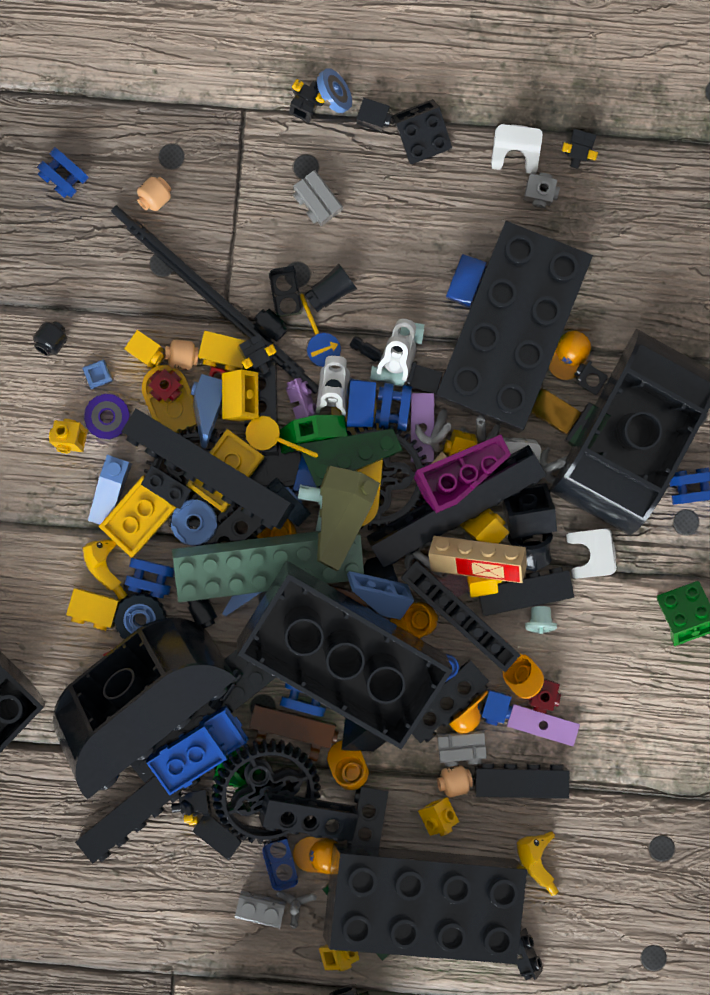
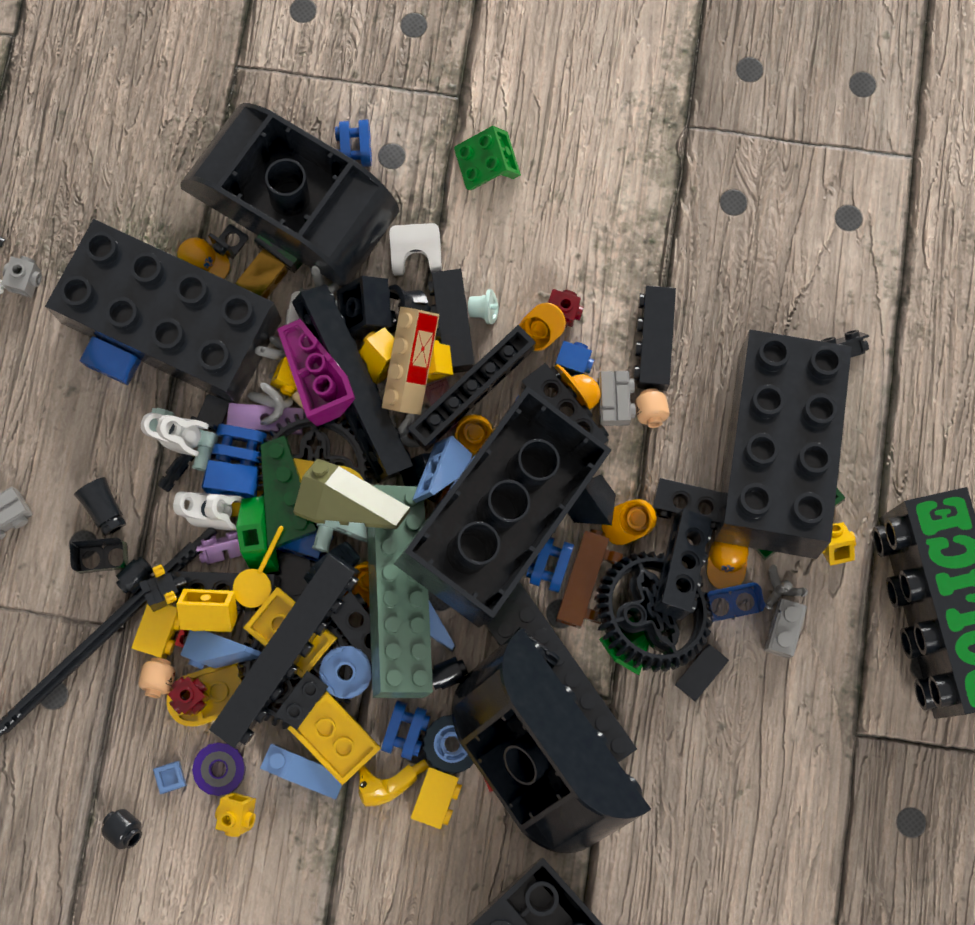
camera: 85 degrees left, 10 degrees down
(127, 817) = (651, 740): black brick -> none
(145, 350) = (145, 716): yellow brick -> none
(192, 805) = (665, 697): black piece -> none
(197, 751) = (603, 682): blue piece -> none
(321, 344) = (163, 522): blue piece -> none
(439, 817) = (690, 426): yellow brick -> none
(530, 854) = (731, 333): yellow animal -> none
(556, 728) = (600, 300): lavender tile -> none

